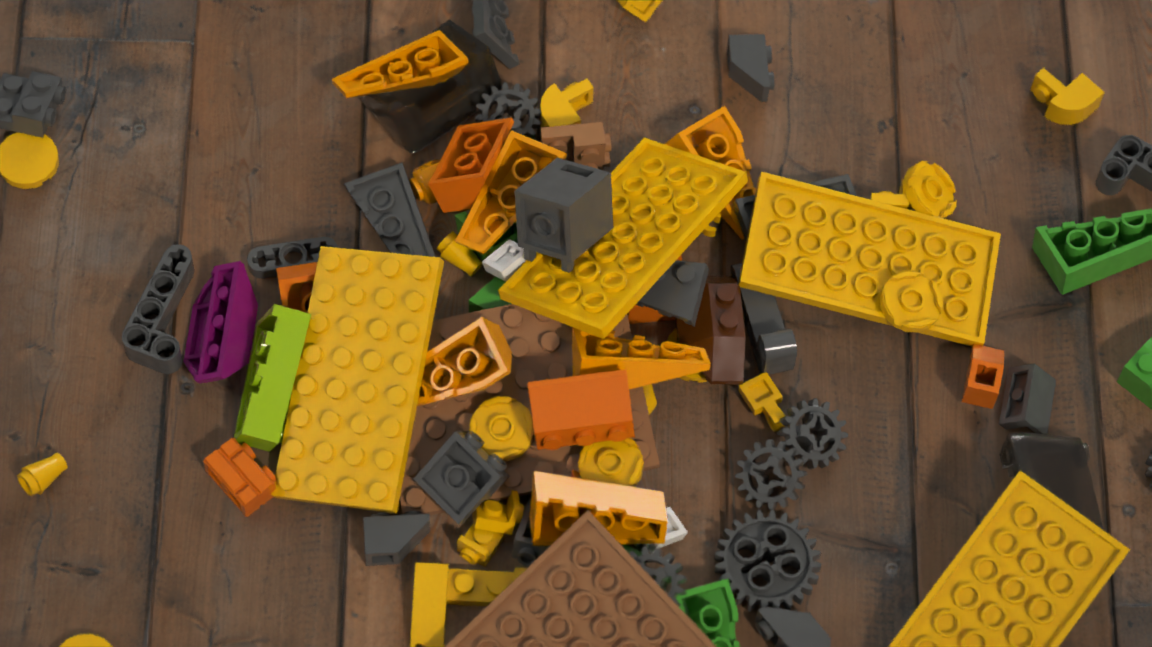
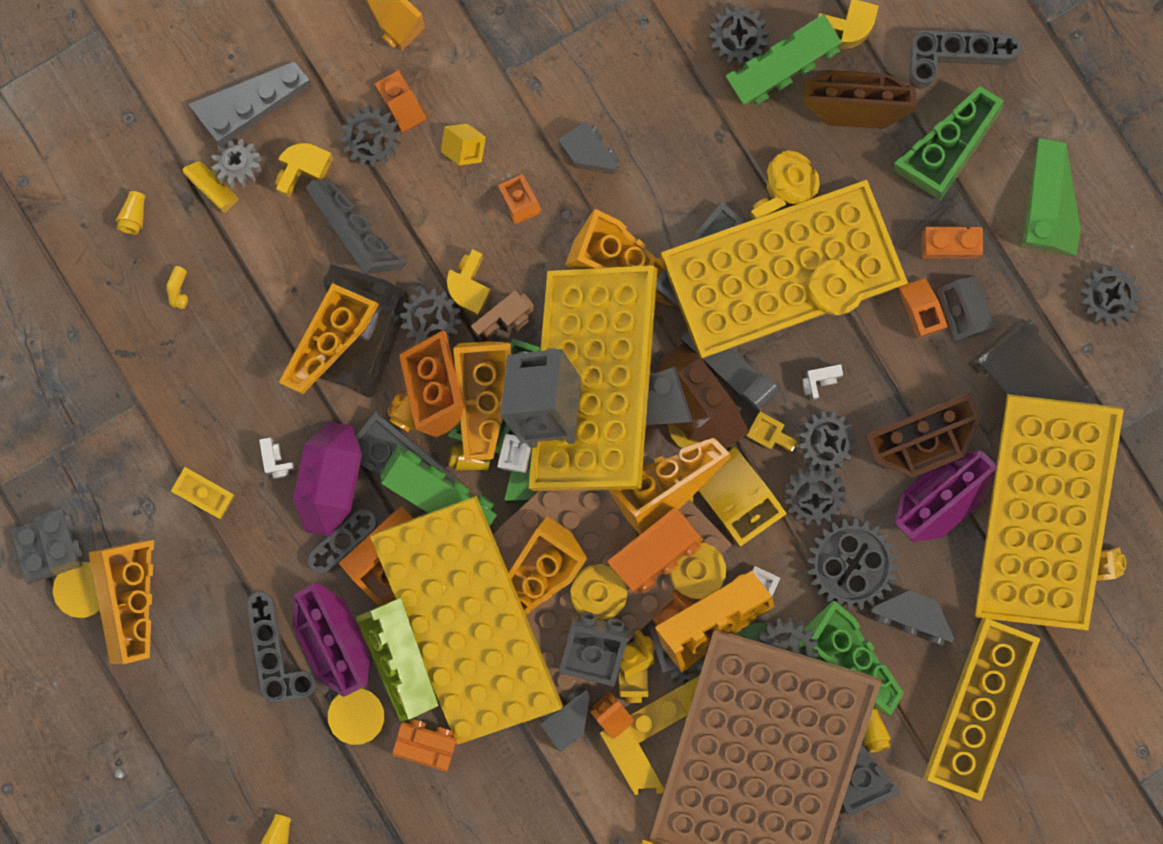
camera: 30 degrees left, 20 degrees up
(60, 179) = (124, 599): none -> light orange wedge
(195, 414) = (356, 717): none -> yellow tile
(196, 142) = (202, 493): none -> yellow plate
(279, 151) = (271, 454): none -> white bracket
(314, 191) = (327, 478): none -> magenta wedge
(400, 235) = (427, 484): none -> bright green wedge
(438, 552) = (611, 715): none -> orange slope
(659, 72) = (519, 199): none -> orange slope
(694, 438) = (741, 500): none -> yellow slope
(847, 376) = (826, 377): none -> white bracket
(900, 553) = (945, 497): none -> magenta wedge
(915, 483) = (927, 438): none -> reddish brown wedge
(966, 58) = (727, 35): none -> dark grey gear
(983, 85) = (785, 61): none -> bright green wedge
(1032, 161) = (858, 99): none -> reddish brown wedge
(1049, 333) = (952, 243): none -> orange brick

